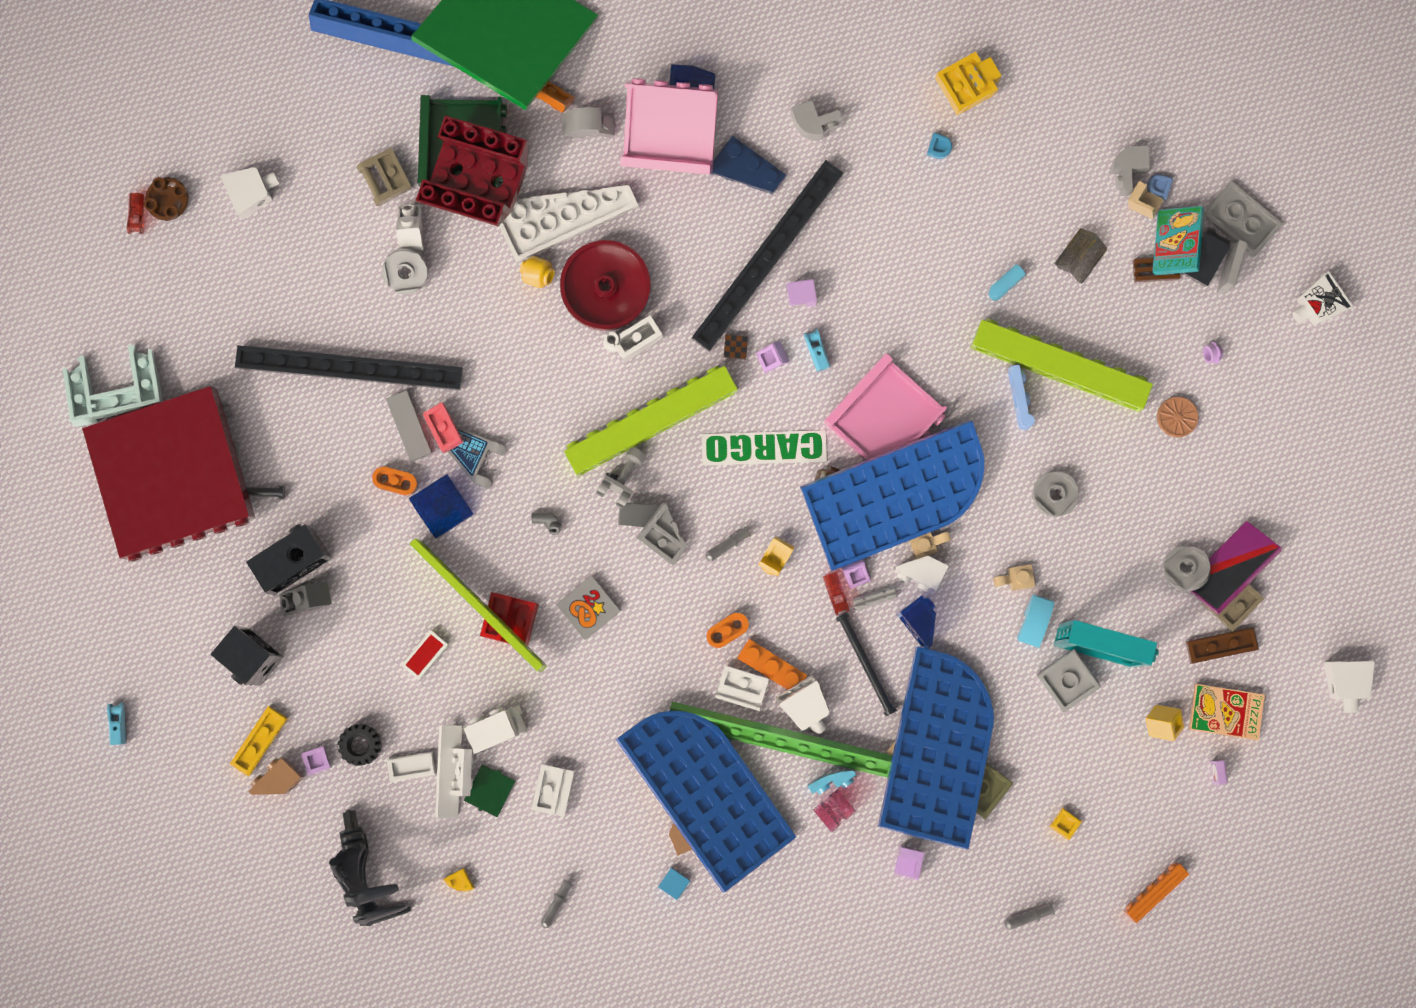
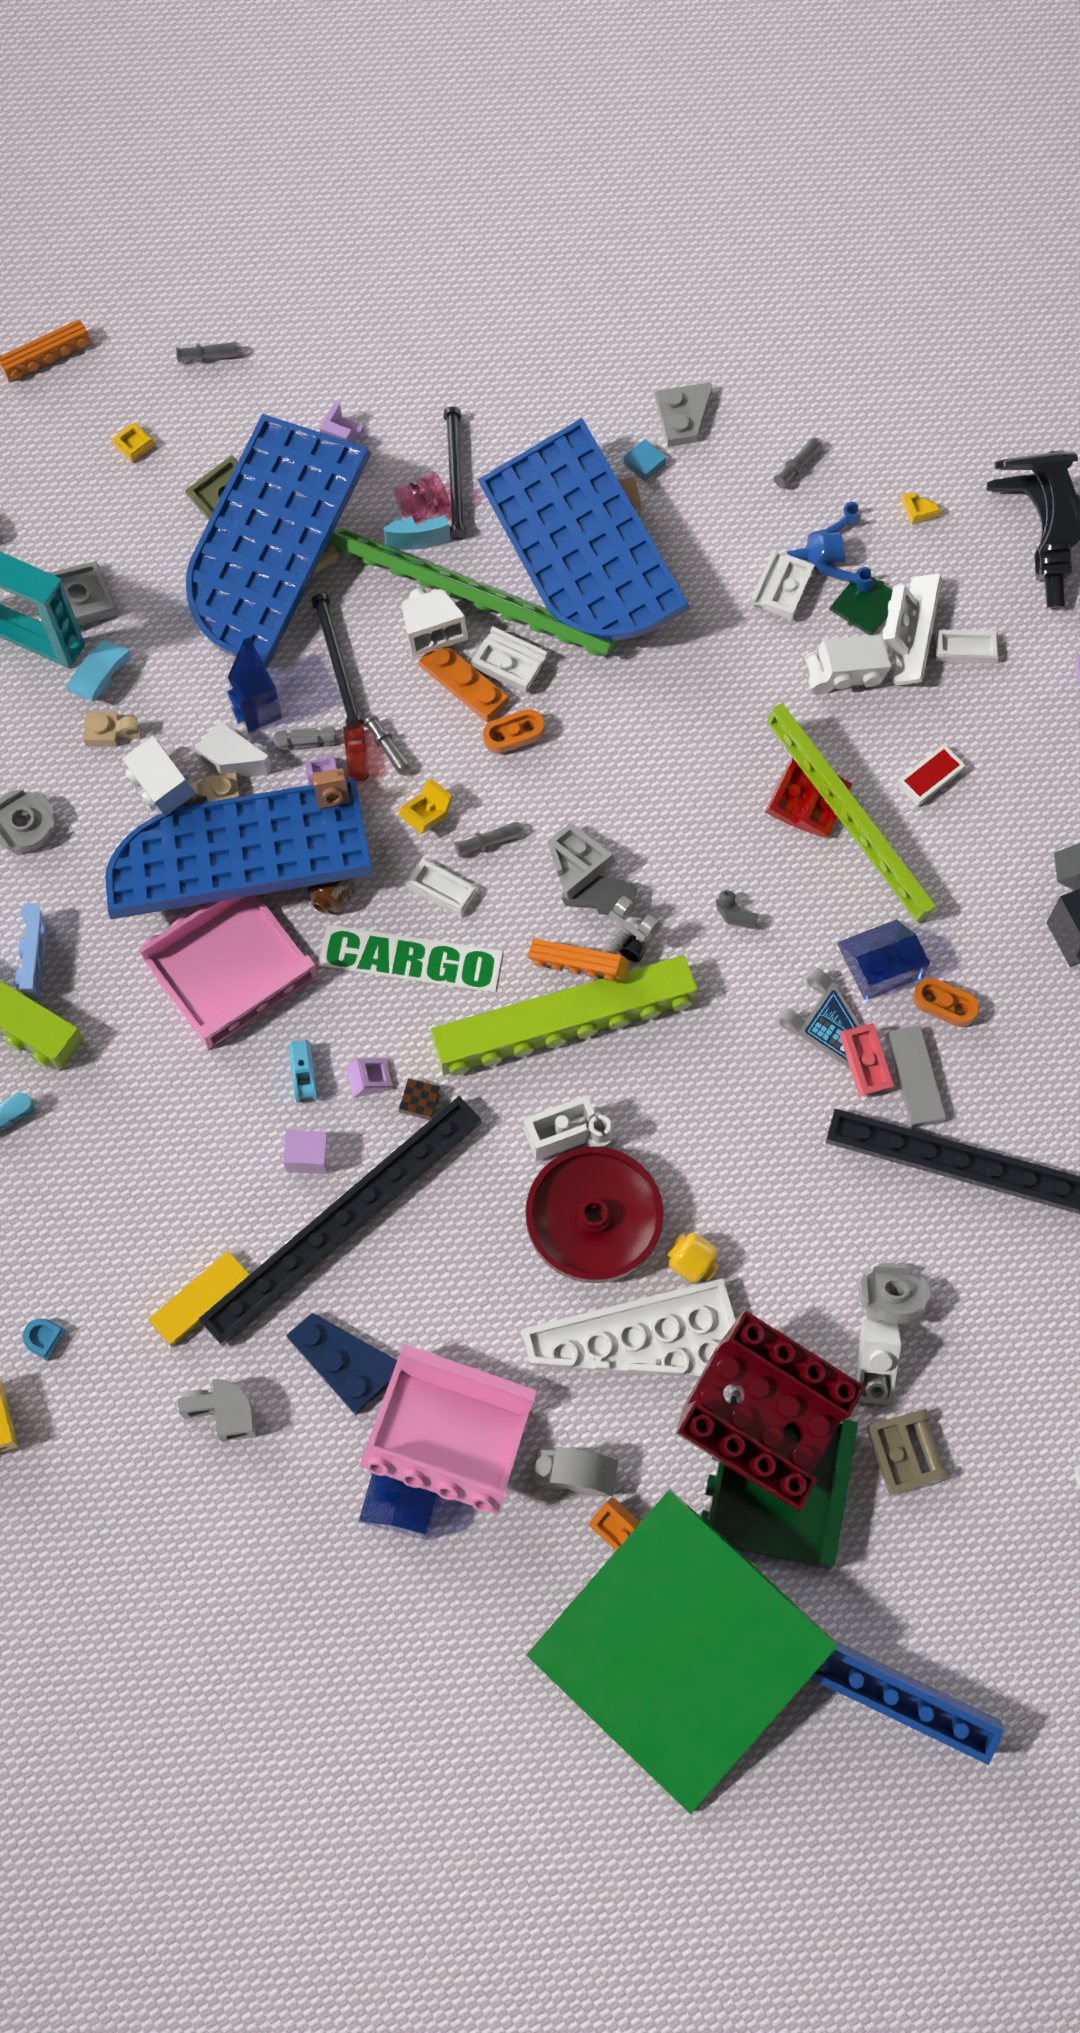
camera: 170 degrees left, 15 degrees down
(373, 744) = (1033, 664): black tyre -> none
(523, 827) = (827, 548): none -> blue piece
(588, 608) = (697, 794): light grey tile -> none
(647, 457) = (578, 960): none -> orange piece
(652, 933) = (682, 412): none -> light grey wing
(753, 502) = (441, 887): none -> white tile
(815, 843) = (452, 416): none -> black bar
(819, 608) = (383, 739): none -> flat silver piece
(845, 553) = (330, 788): none -> nougat bracket
(846, 189) = (184, 1309): none -> yellow tile
(969, 539) = (158, 775): none -> white hinge

